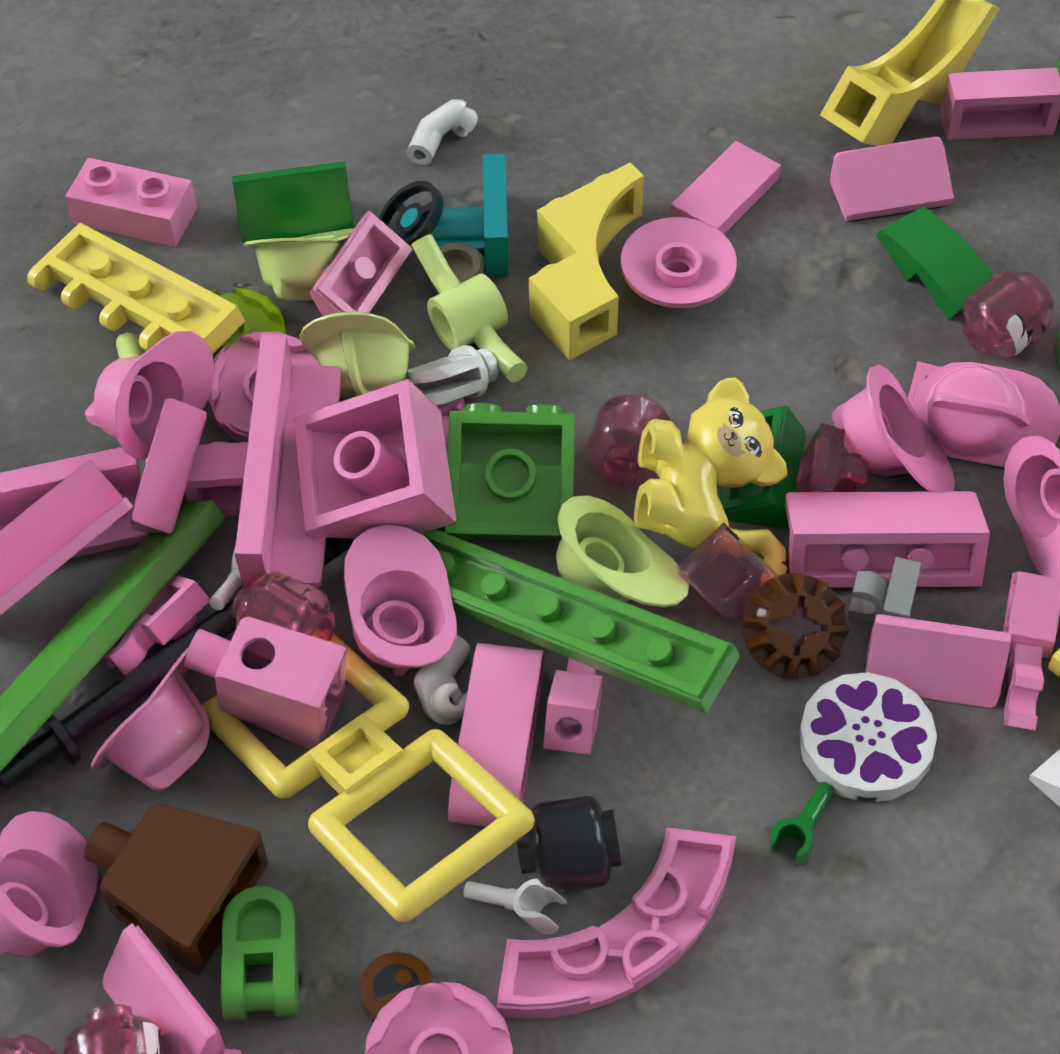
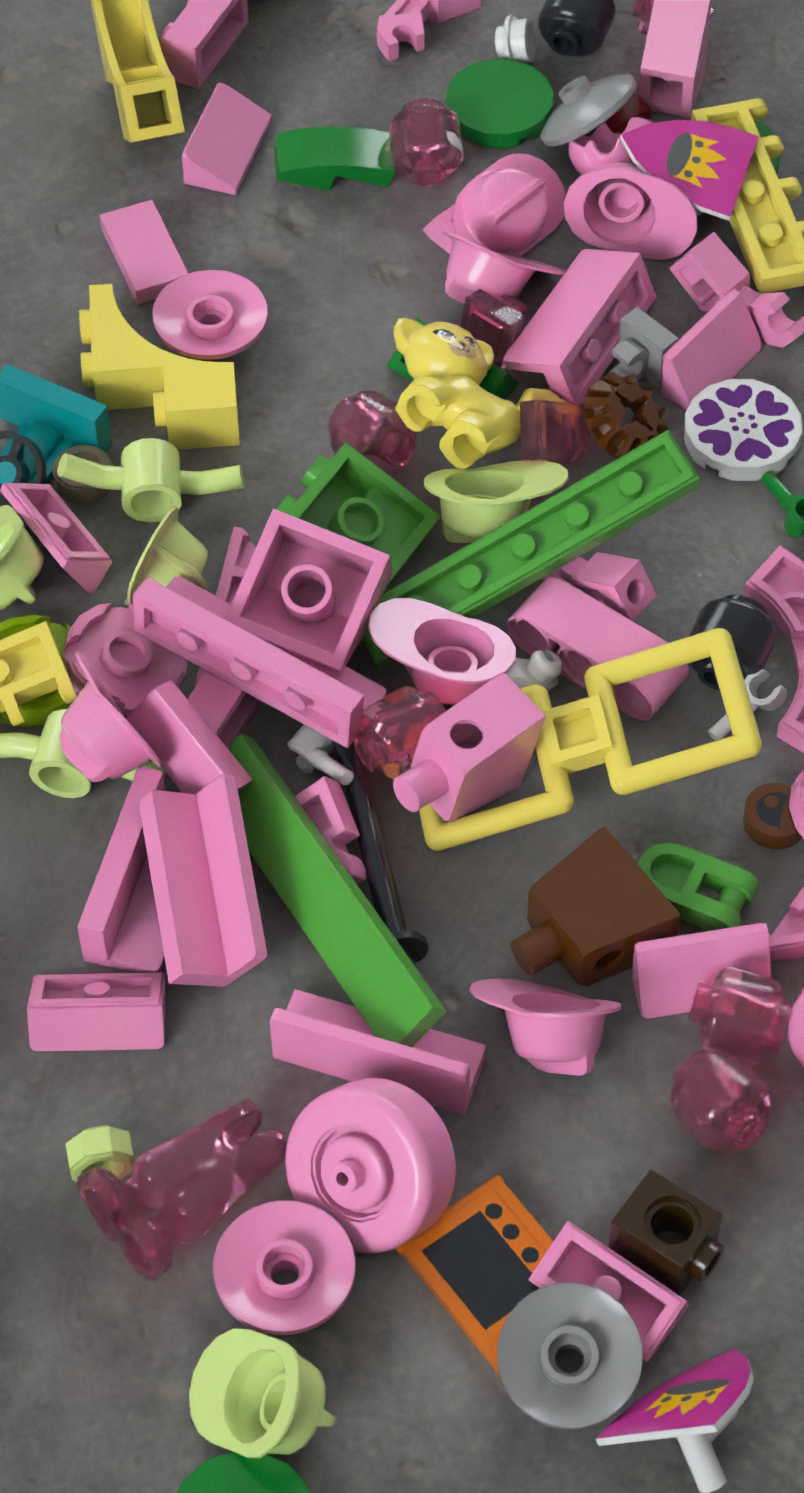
camera: 60 degrees left, 0 degrees up
(161, 735) = (438, 864): bright pink piece -> none
(468, 373) = (218, 521): white arm -> none

